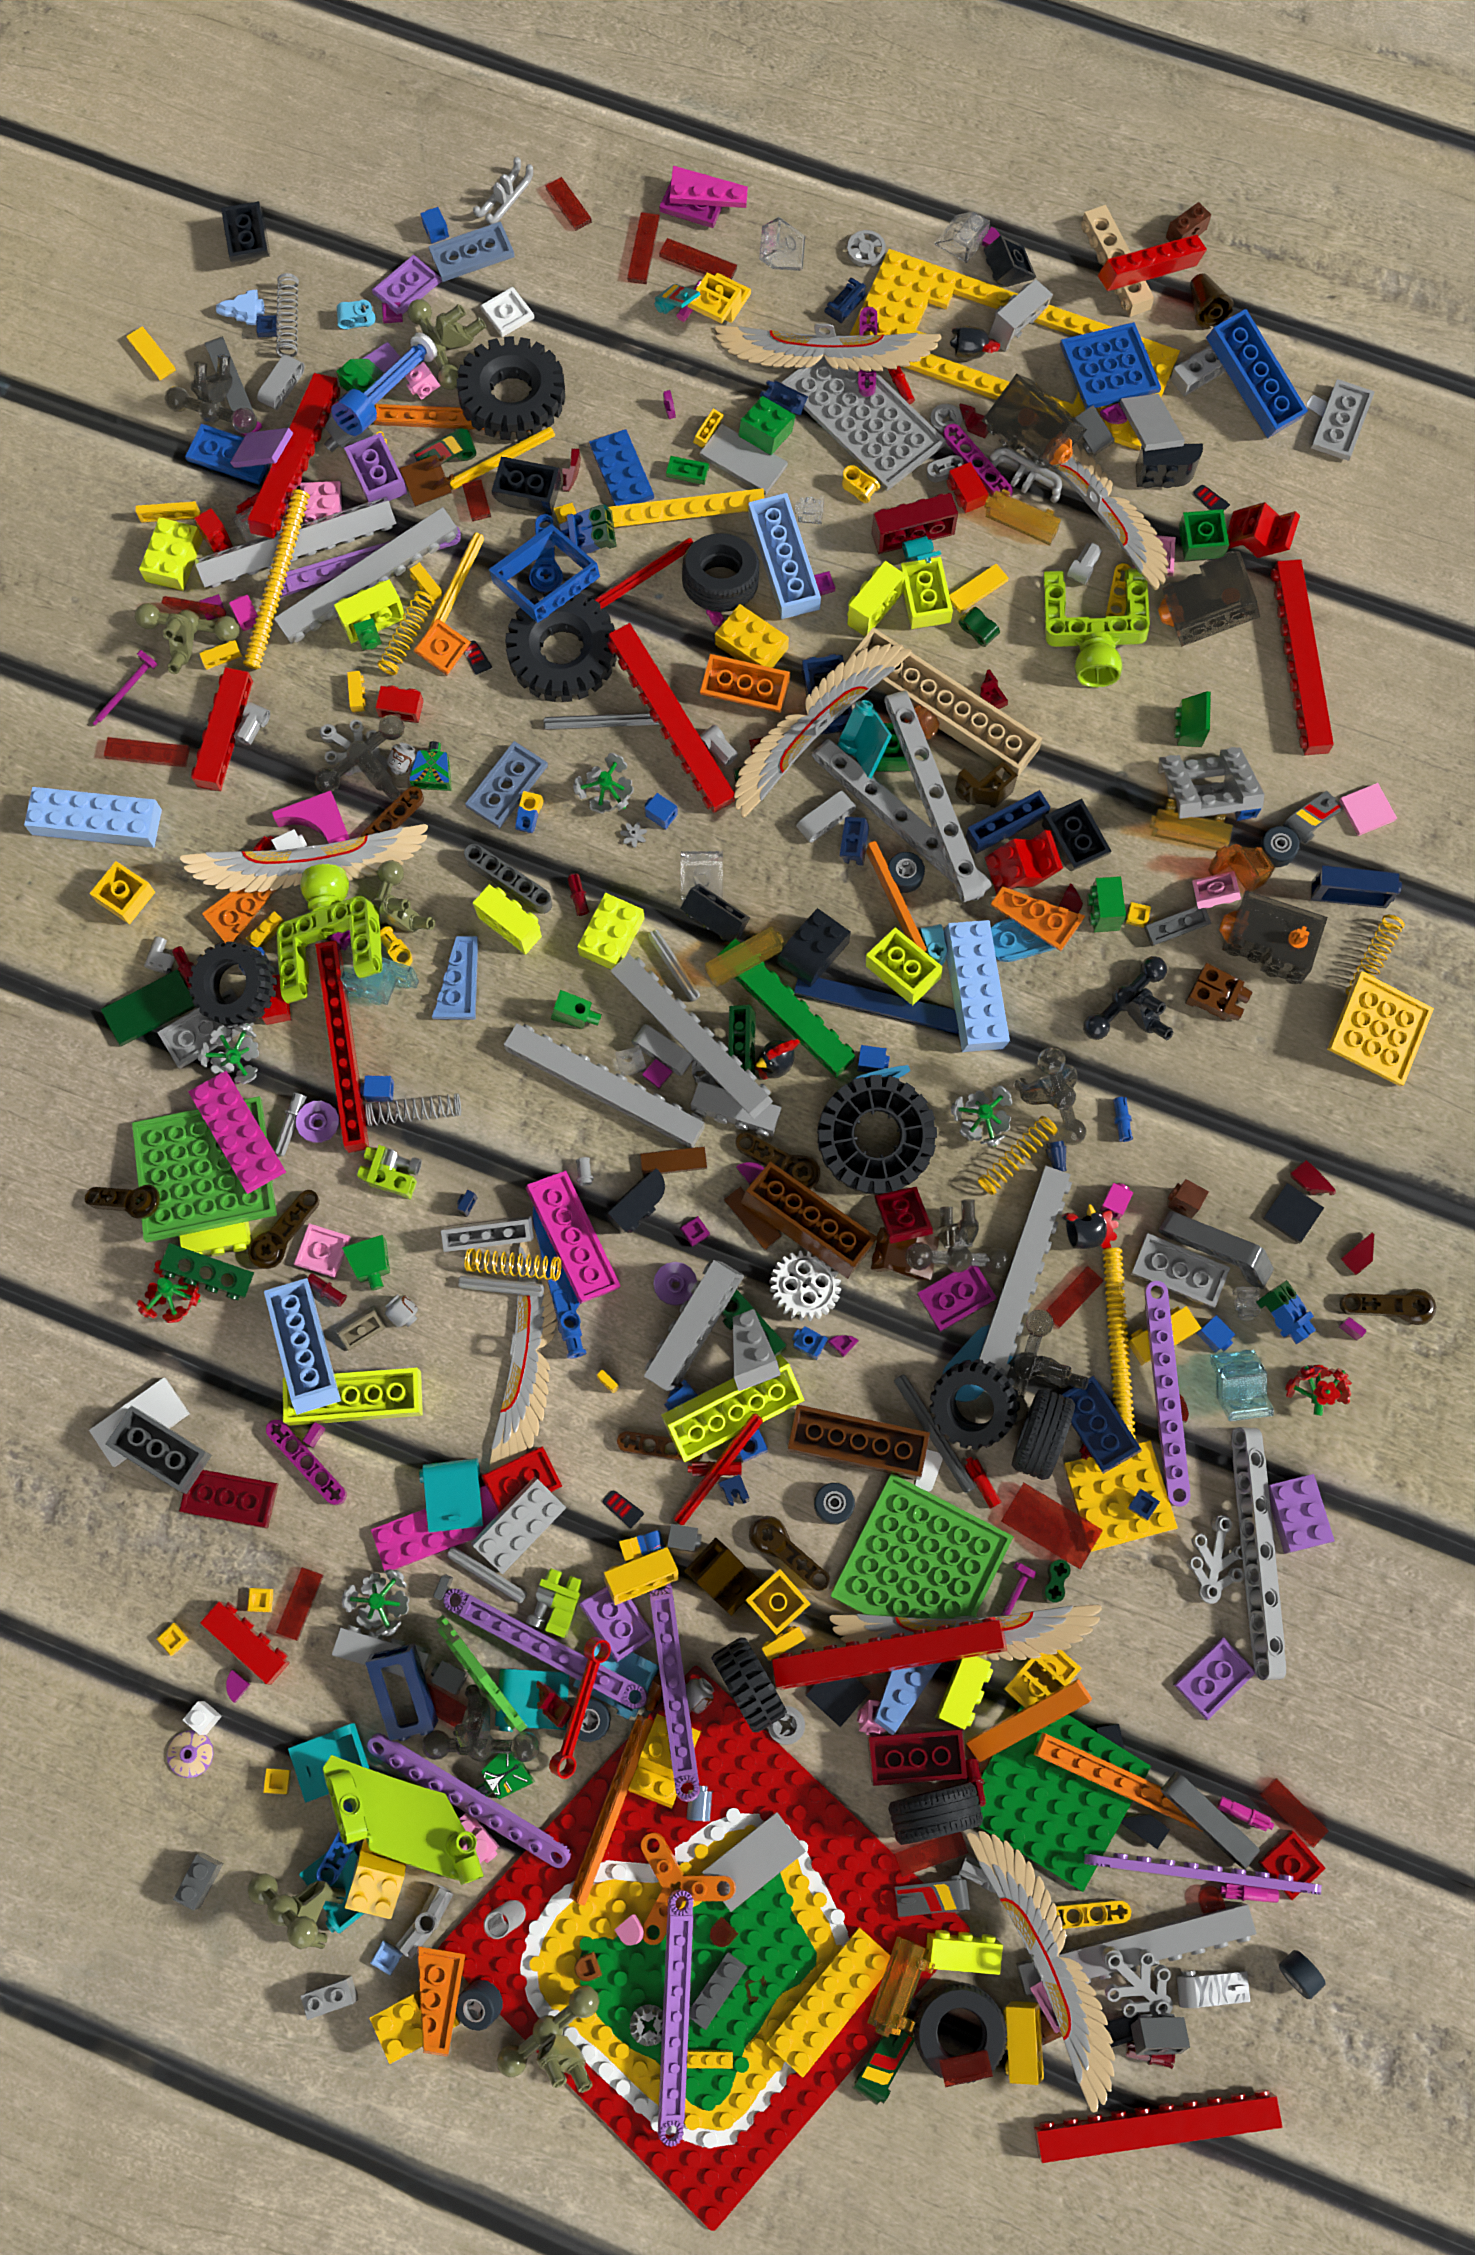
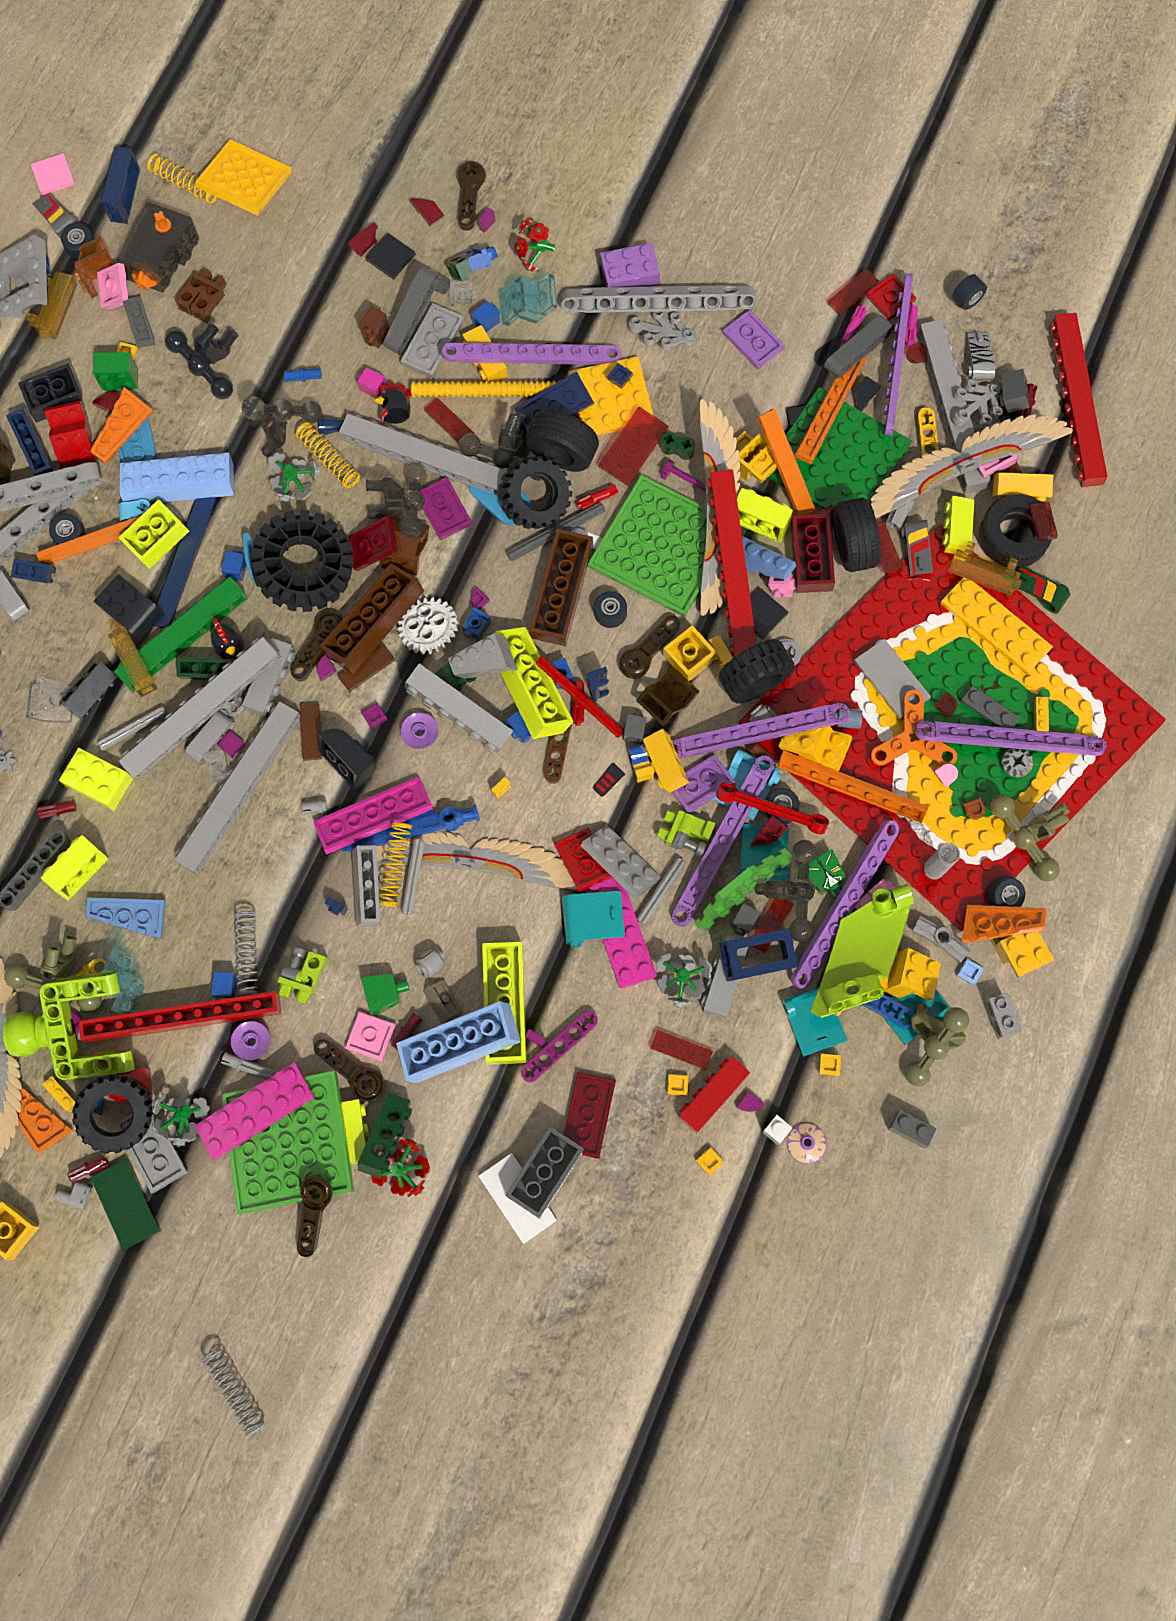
camera: 85 degrees left, 0 degrees up
(443, 1586) = (670, 925): dark grey tile -> none
(567, 1007) = (166, 812): green torso -> none

